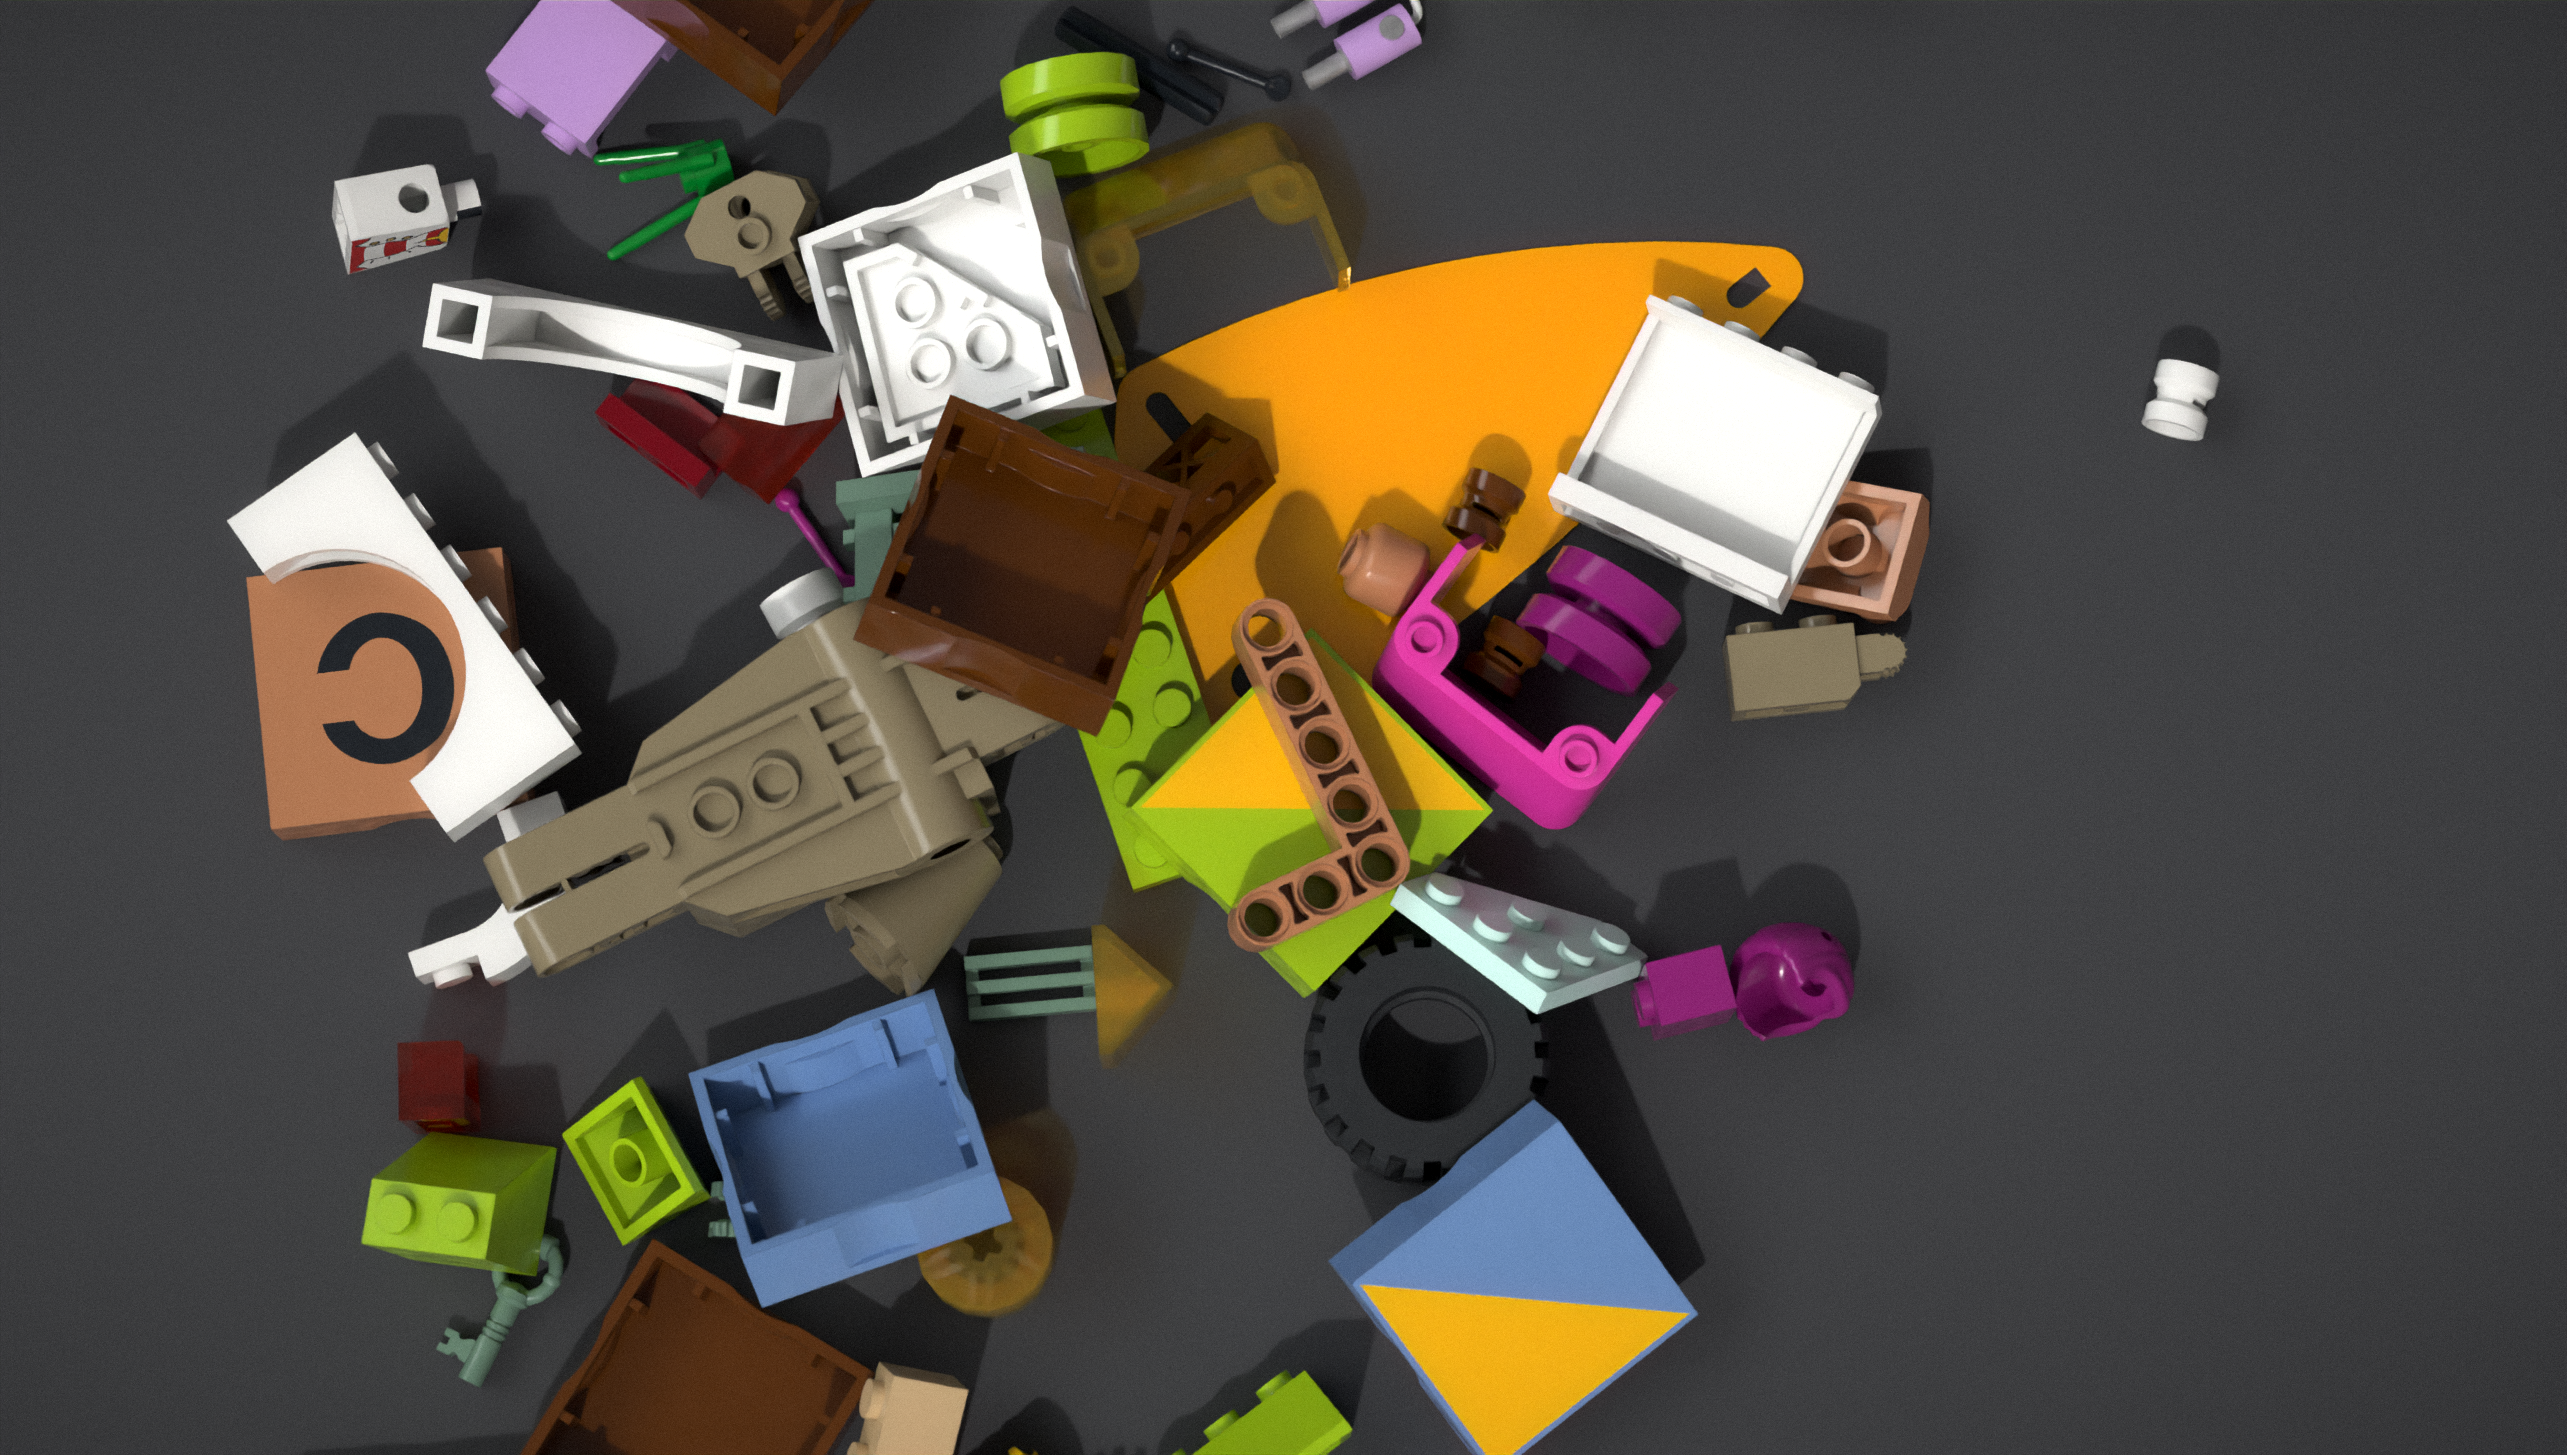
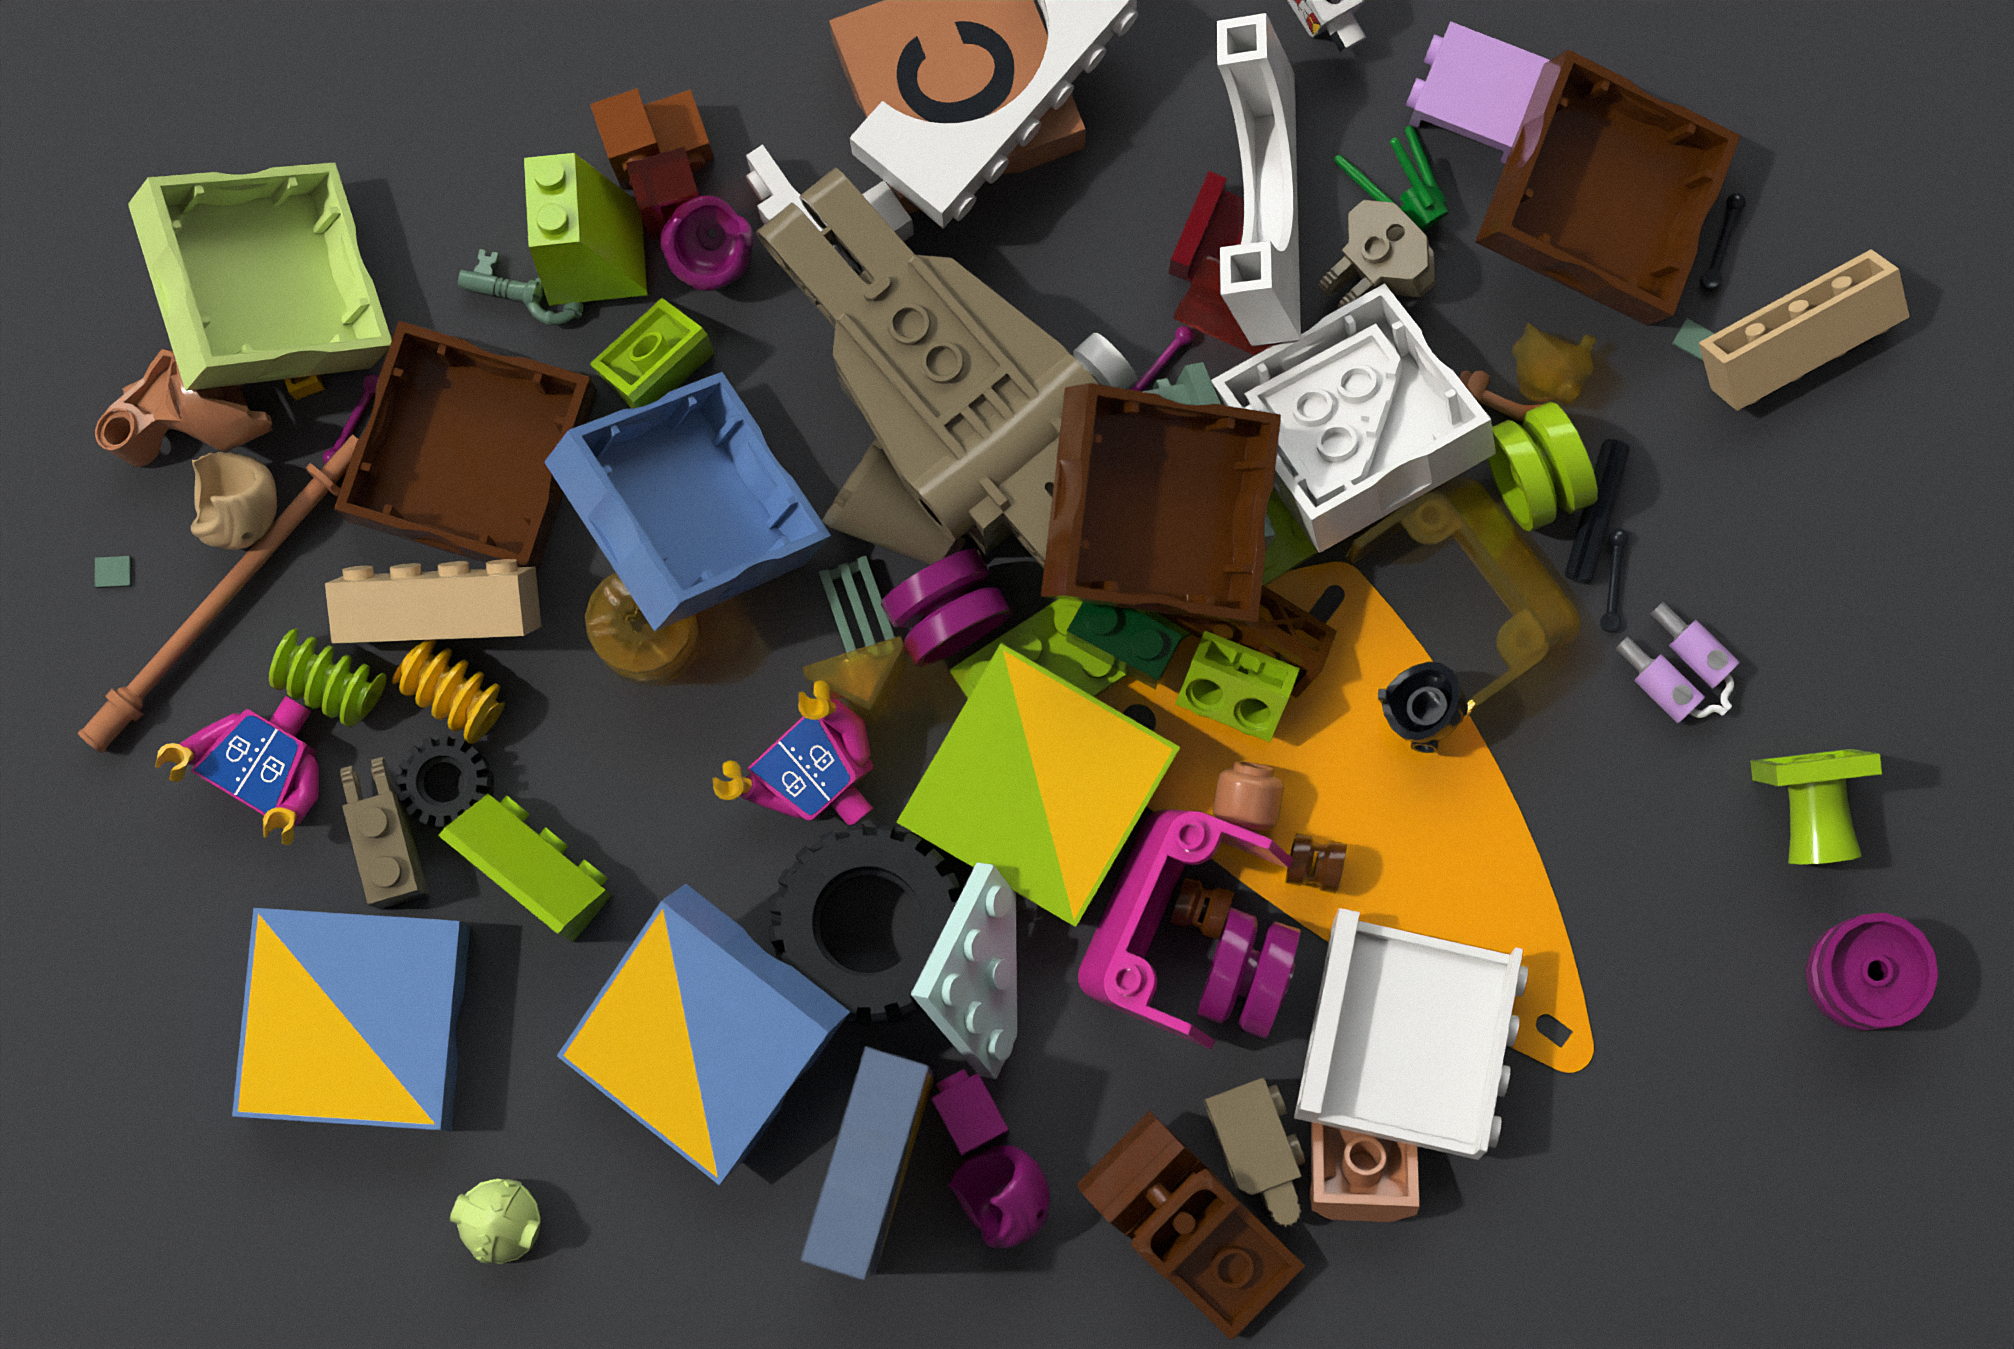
camera: 80 degrees right, 0 degrees up
(354, 1091) = (641, 130): none -> dark orange brick
(543, 1058) = (689, 245): none -> magenta piece
(946, 164) = (1477, 386): none -> nougat piece
(949, 68) = (1550, 366): none -> clear yellow helmet
(1061, 868) = (946, 607): none -> magenta wheel
(1164, 661) = (1125, 640): none -> dark green brick
(1213, 1085) = (809, 764): none -> torso
(1247, 543) = (1237, 686): none -> lime brick
(1319, 785) = (1055, 784): nougat beam -> none
(1328, 329) = (1424, 705): none -> black helmet
(1723, 1116) = (869, 1164): none -> sand blue tile
(1876, 769) = (1189, 1225): none -> reddish brown piece

